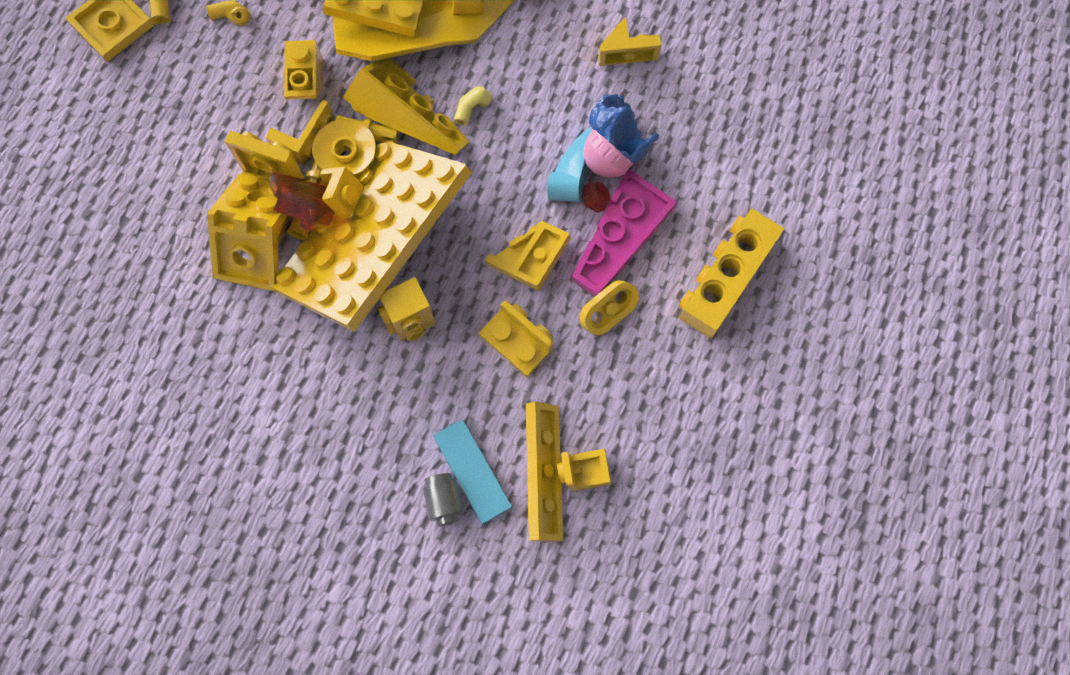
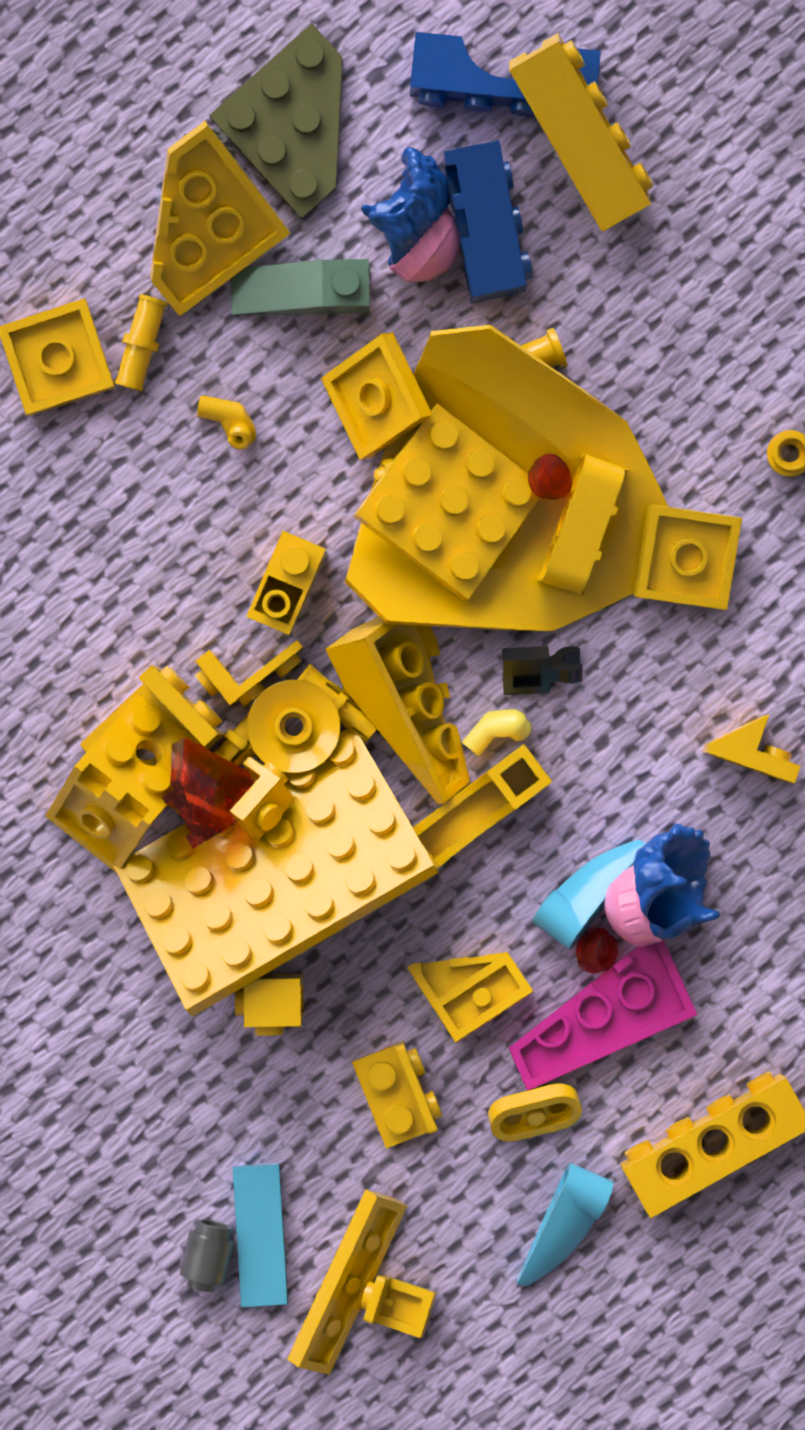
camera: 25 degrees right, 15 degrees up
(474, 59) = (532, 669): none -> black plate
(487, 136) = (481, 805): none -> yellow arch
(665, 355) = (572, 1212): none -> medium azure piece

